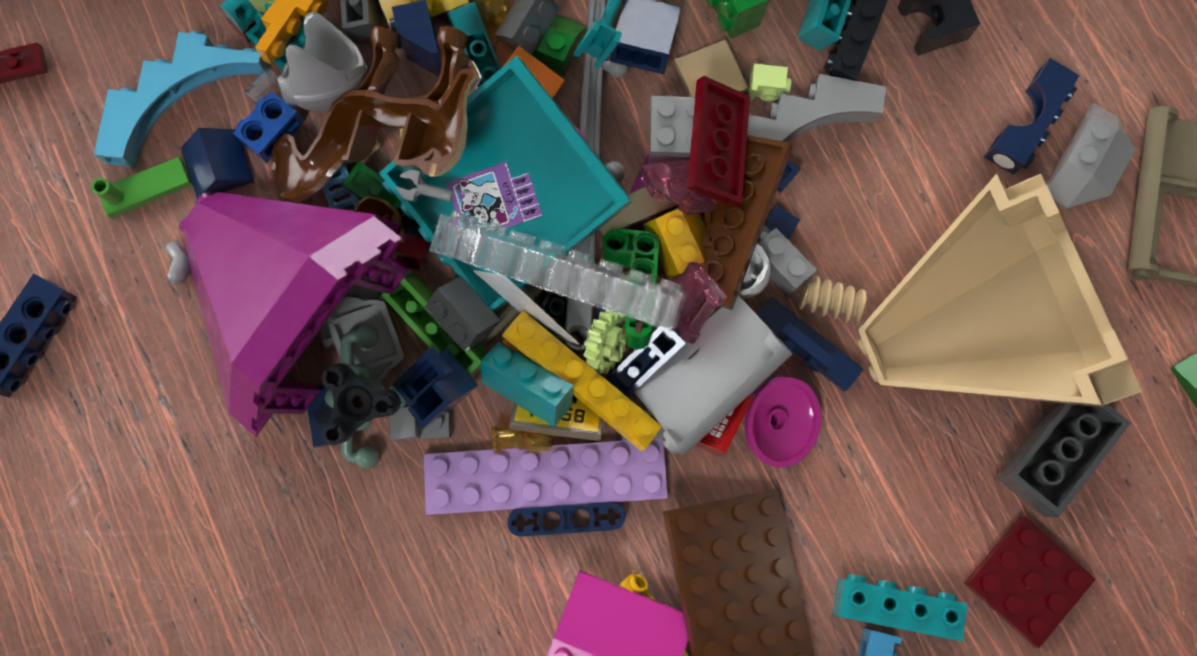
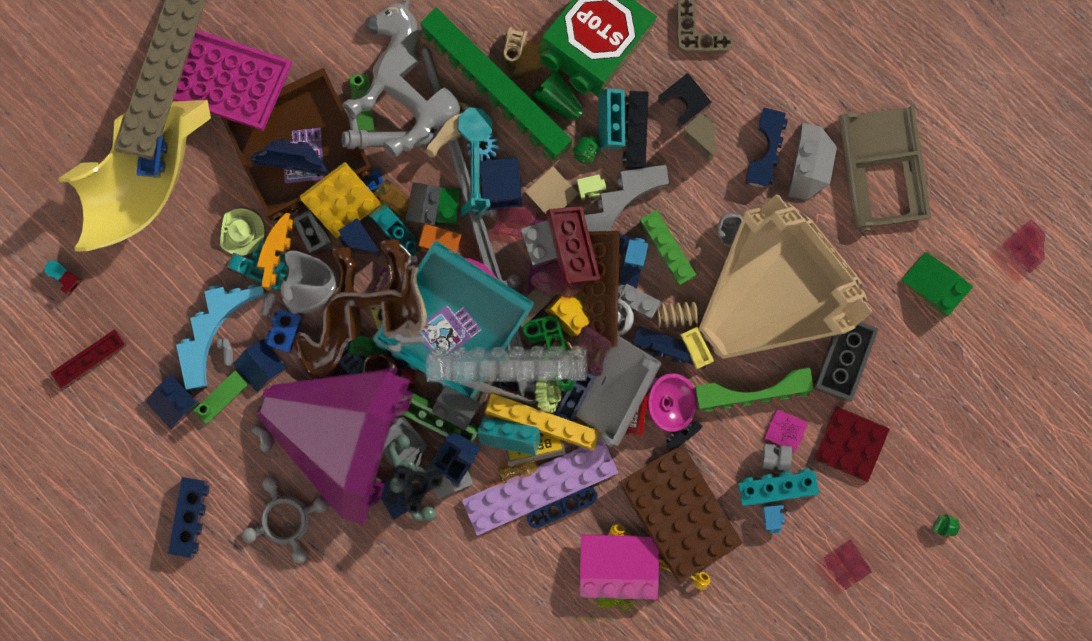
camera: 15 degrees left, 5 degrees up
(71, 165) = (172, 401): none -> dark blue slope
(100, 393) = (270, 485): none -> light grey piece
(179, 127) = (227, 350): none -> light grey arm
(645, 85) = (520, 215): none -> clear pink plate
(776, 479) = (677, 439): none -> black slope
(780, 32) = (586, 150): none -> green head
(803, 191) = (636, 253): none -> dark azure brick
(845, 348) = (697, 348): none -> light yellow tile
(849, 202) = (667, 248): none -> bright green brick
(916, 562) = (776, 457): none -> light grey wheel
(936, 525) = (786, 430): none -> dark pink piece
(947, 205) = (728, 228): none -> light grey hair
(950, 65) = (701, 135): none -> dark tan slope
(973, 458) = (793, 383): none -> bright green arch

